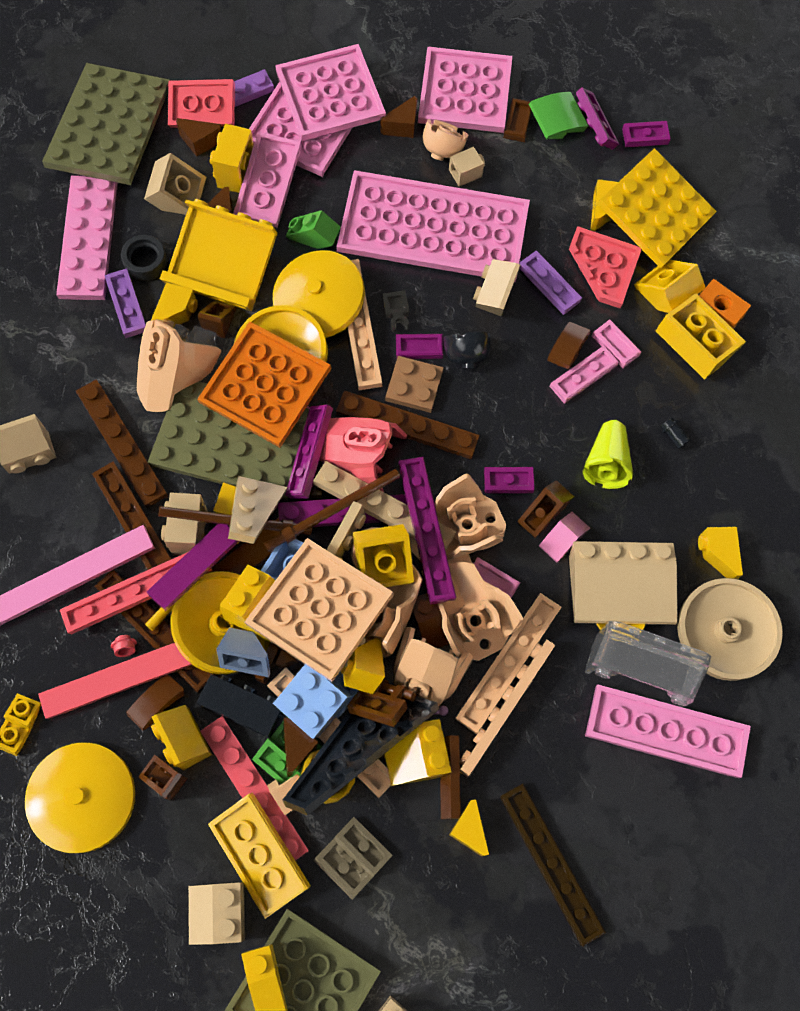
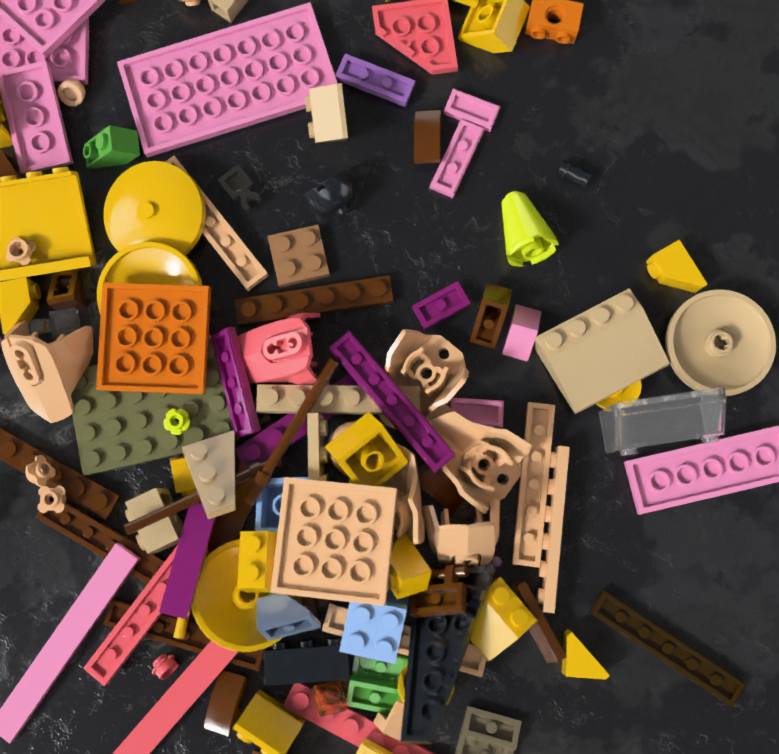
camera: 20 degrees left, 10 degrees up
(116, 471) = (57, 493): none -> light nougat plate
(117, 438) = (39, 471): none -> light nougat plate
(195, 265) = (13, 251): none -> light nougat plate
(242, 744) = (329, 698): none -> clear orange plate
(247, 462) = (184, 421): none -> neon yellow plate
(297, 746) = (383, 675): reddish brown slope -> none
(306, 175) = (71, 92): none -> light nougat tile
(419, 346) = (282, 214): magenta tile -> none
(700, 336) = (549, 61): yellow slope -> none

